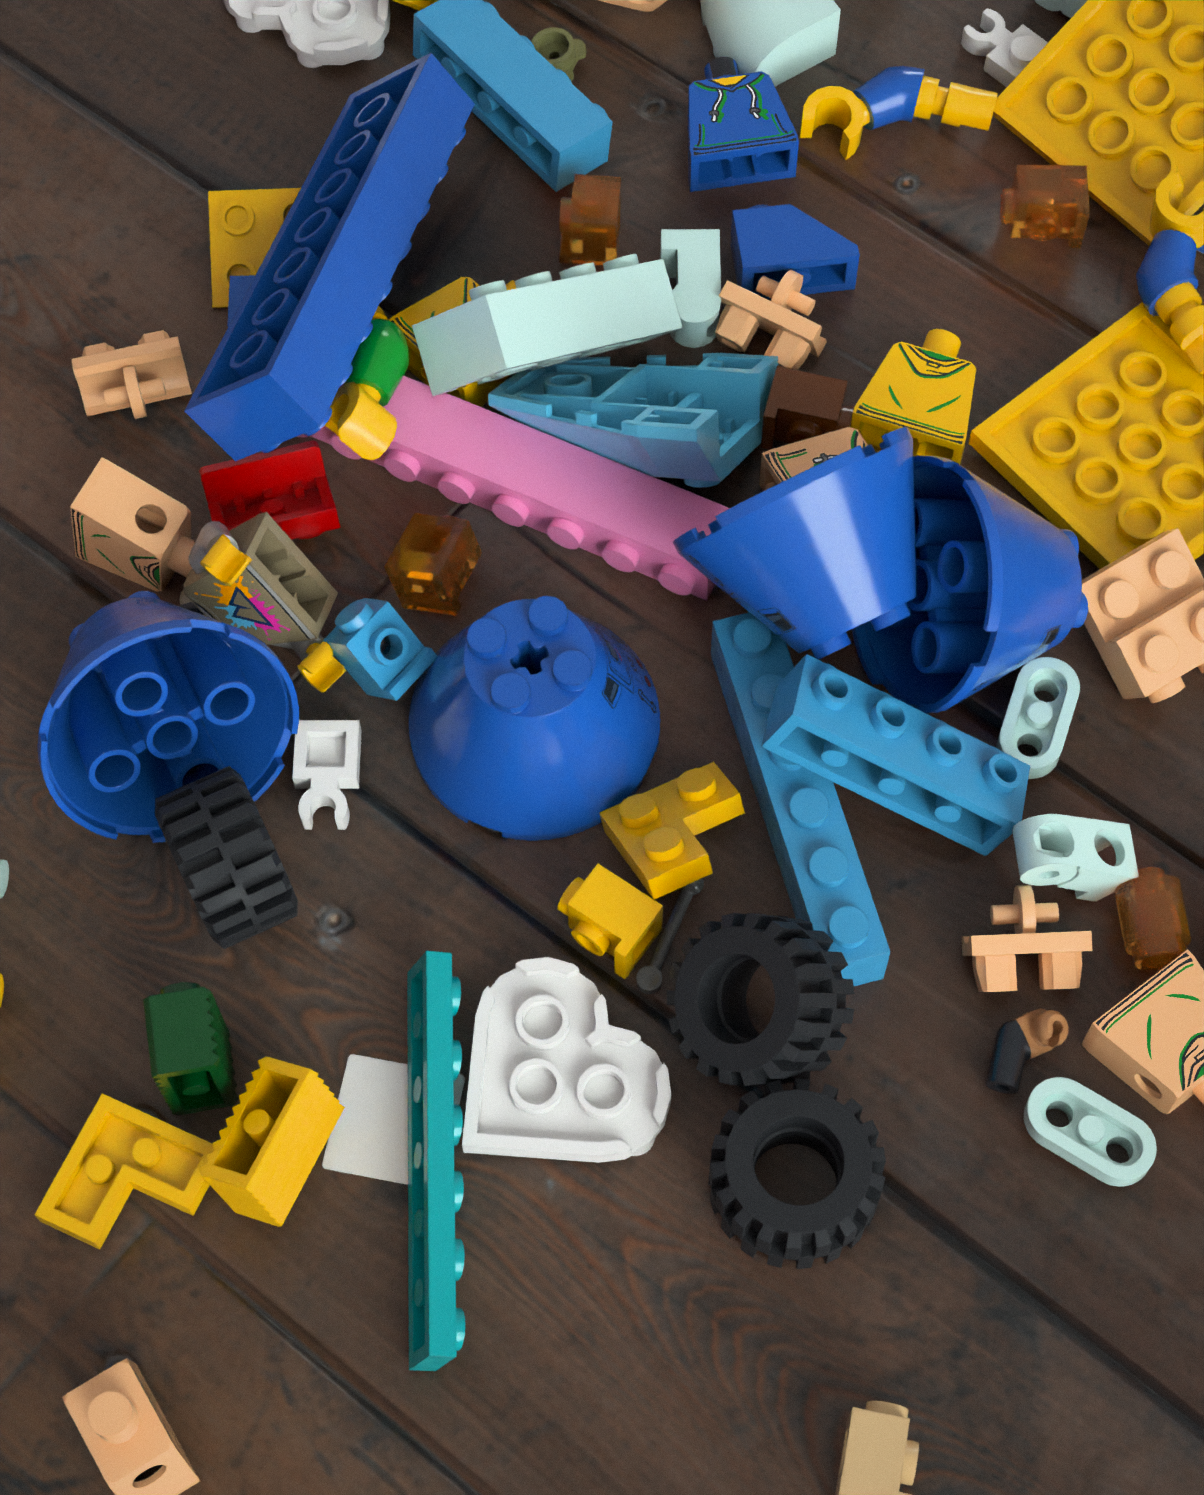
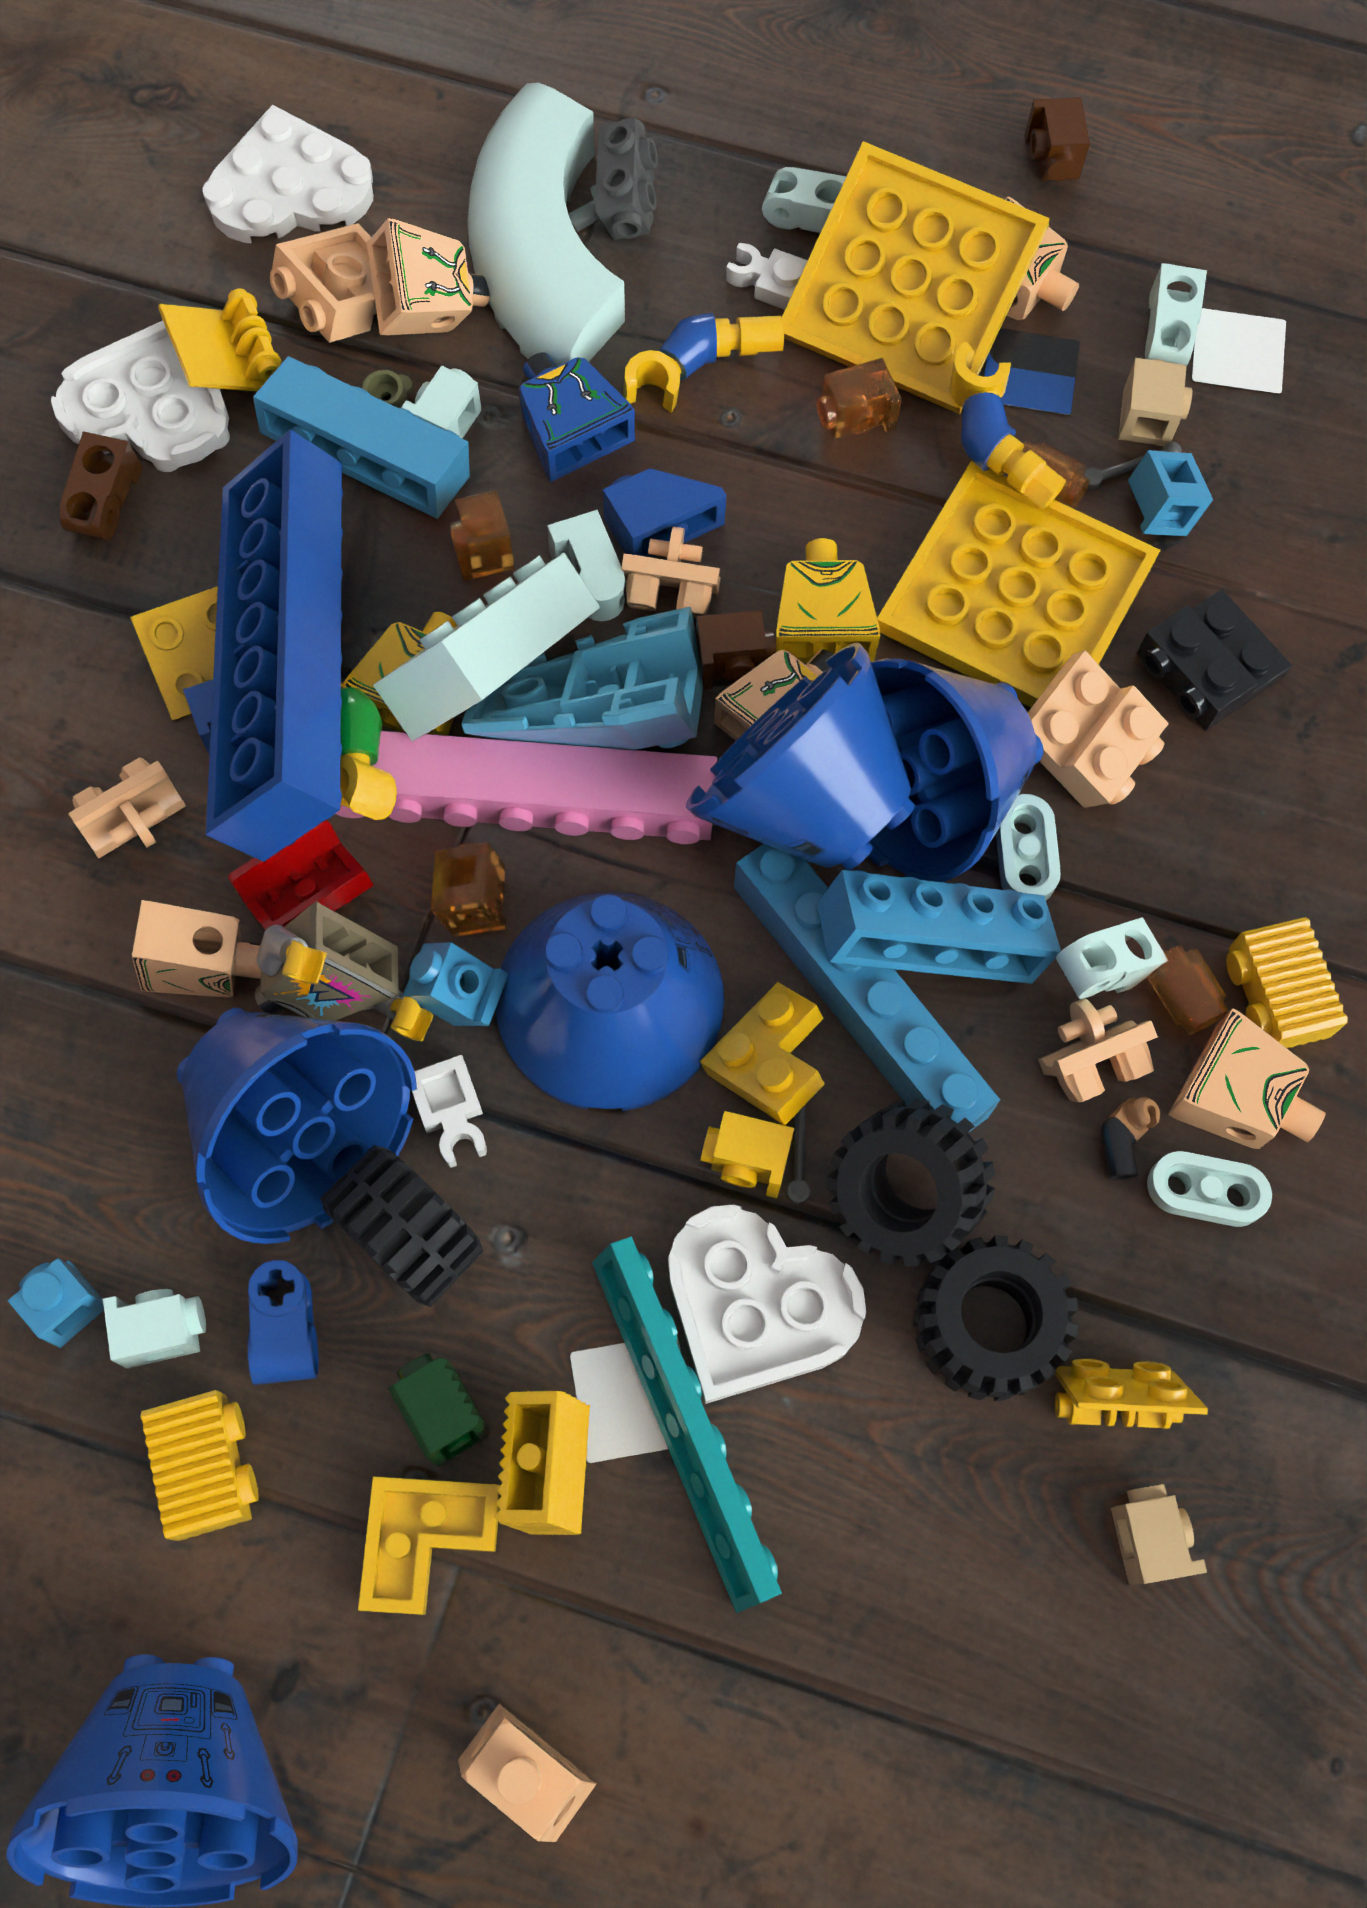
camera: 25 degrees left, 5 degrees up
(71, 926) = (282, 1336): none -> blue piece
(232, 58) = (98, 486): none -> reddish brown leg
(613, 79) = (448, 401): none -> light aqua brick
(874, 1278) = (1144, 1395): none -> yellow hinge

